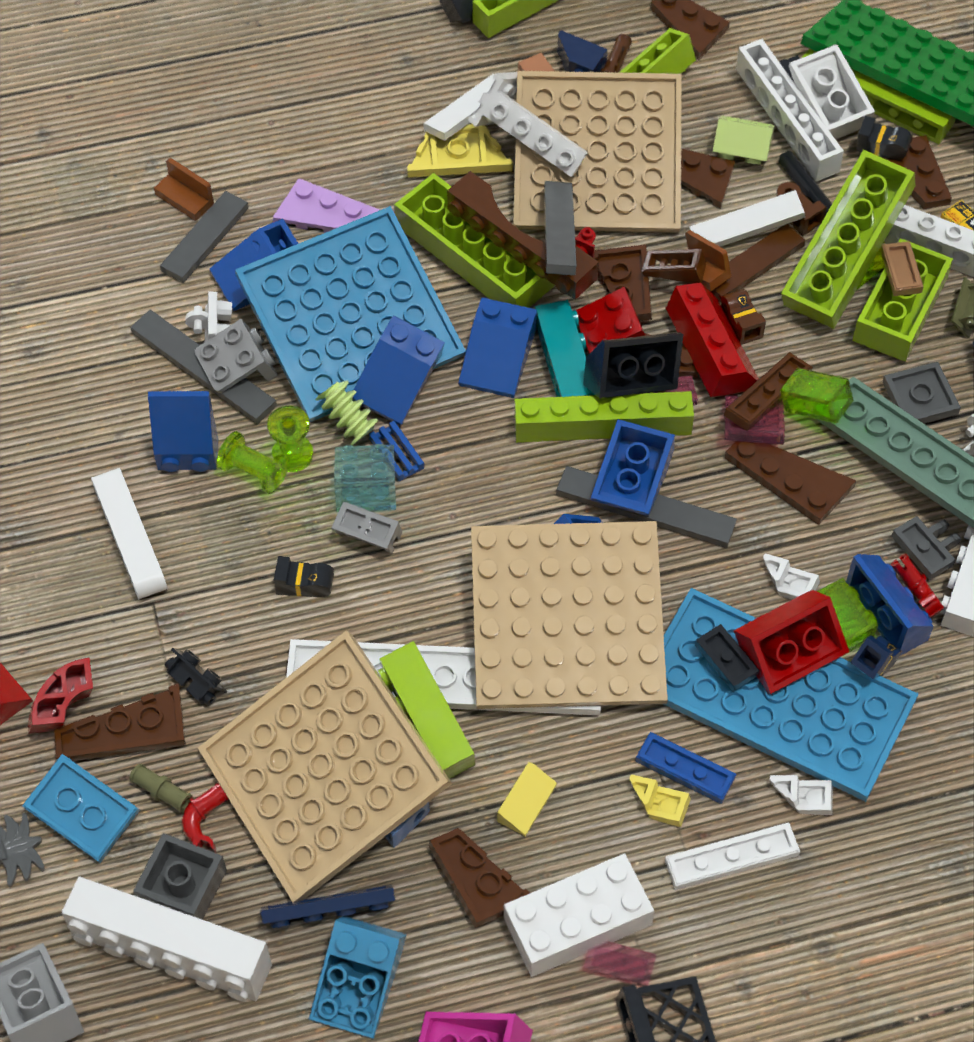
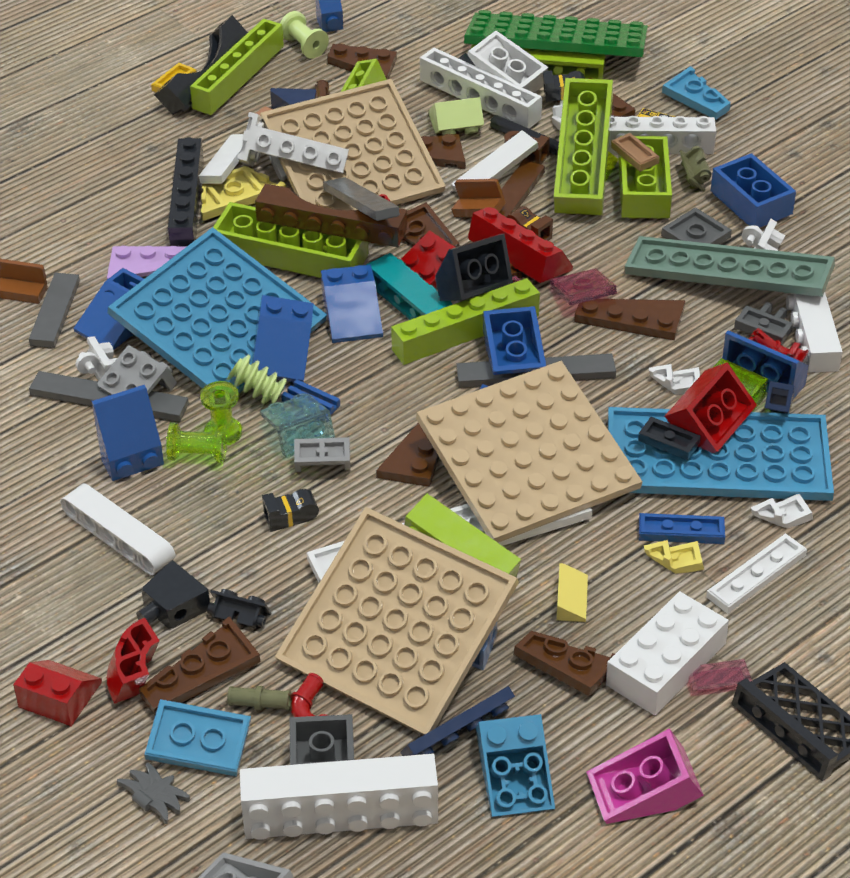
camera: 25 degrees left, 15 degrees down
(137, 637) = (173, 597): none -> black torso
(403, 138) = (186, 192): none -> black brick
(450, 570) = (411, 461): none -> reddish brown wing
(685, 266) = (459, 204): reddish brown slope -> none
(764, 393) = (582, 264): reddish brown tile -> none
(817, 395) = (623, 252): clear neon green brick -> none

